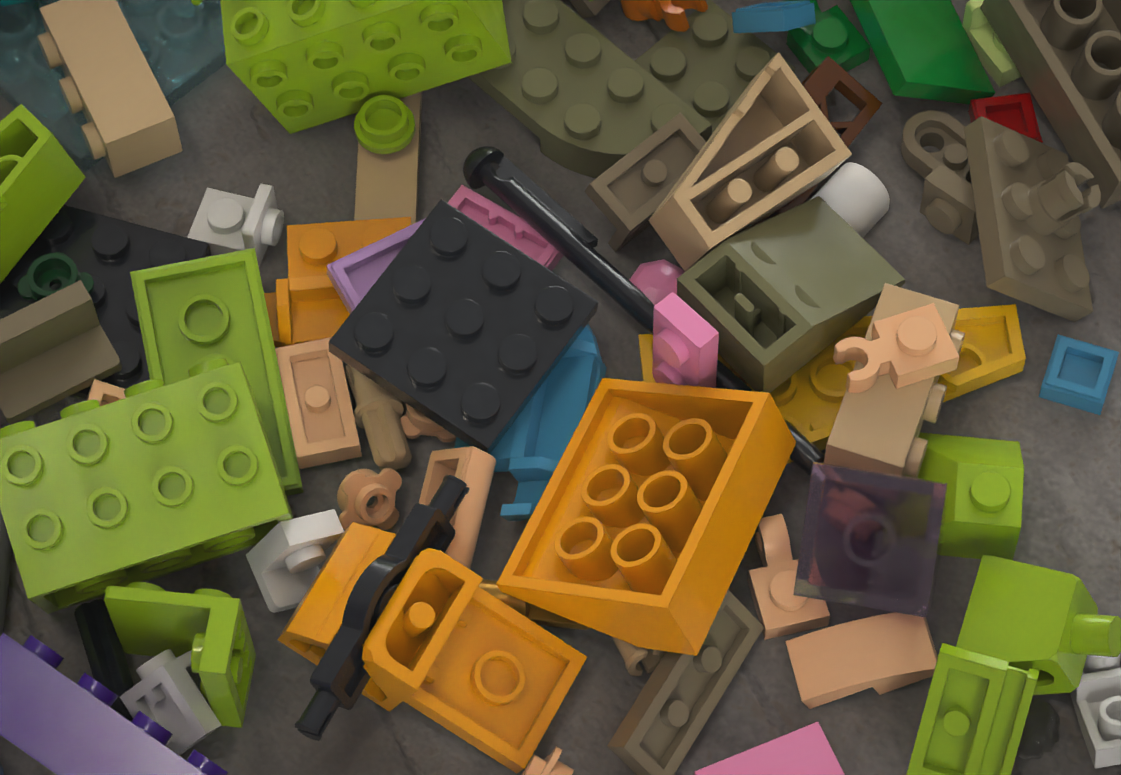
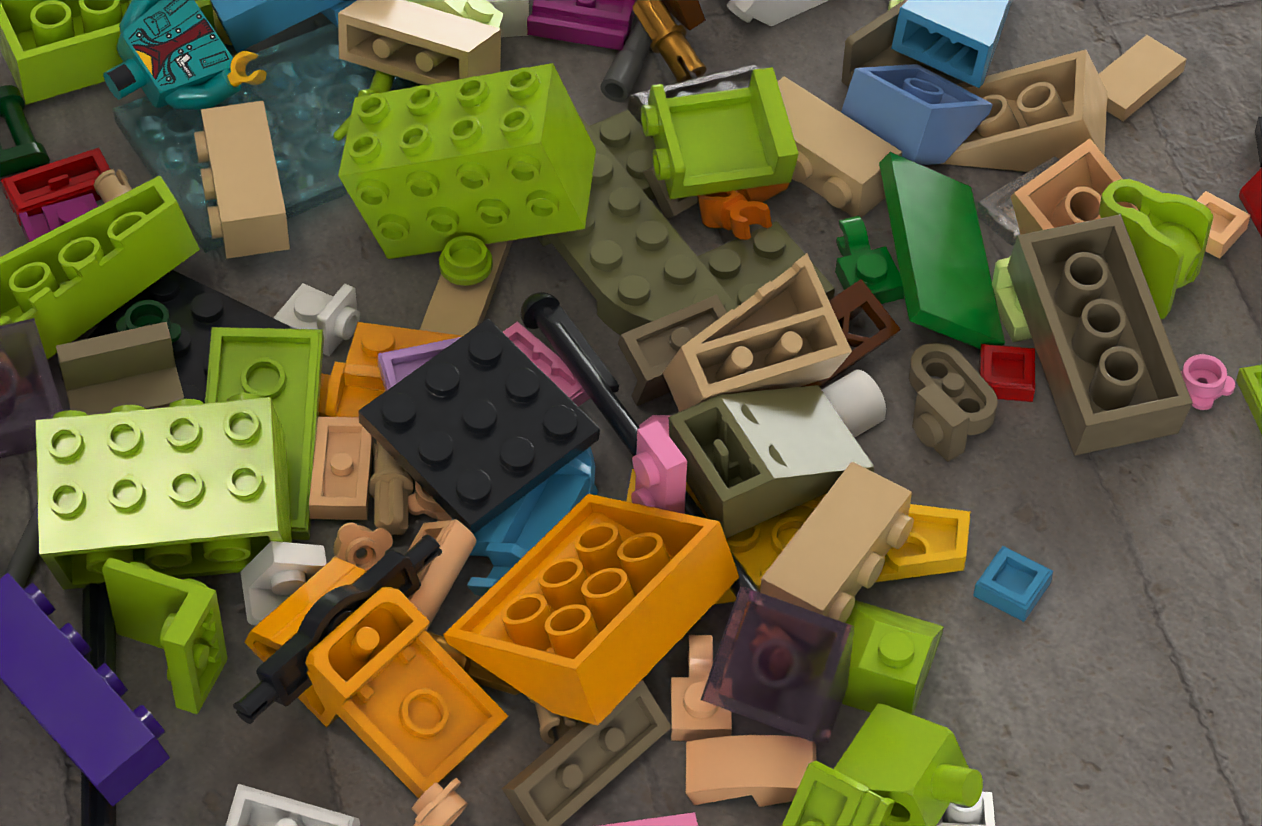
camera: 10 degrees right, 10 degrees down
(172, 700) = (141, 670): white bracket -> none
(773, 16) = (825, 241): dark azure tile -> none
(904, 345) = (852, 513): light nougat plate -> none
(1030, 218) = (1000, 445): dark tan plate -> none

